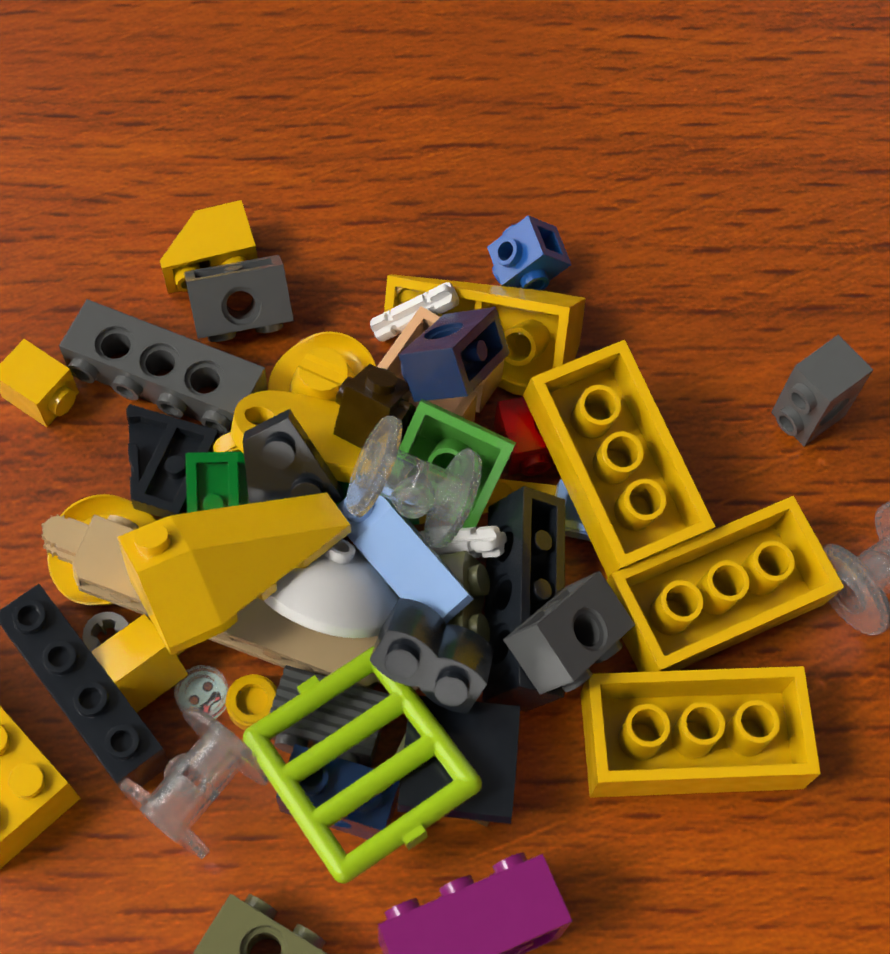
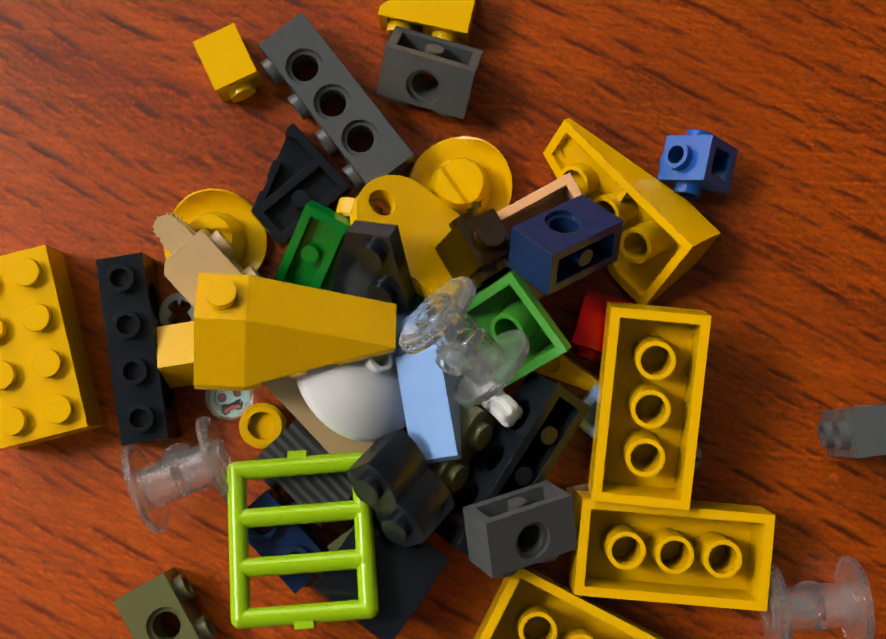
camera: 40 degrees right, 20 degrees up
(394, 322) = (561, 162): white axle -> none

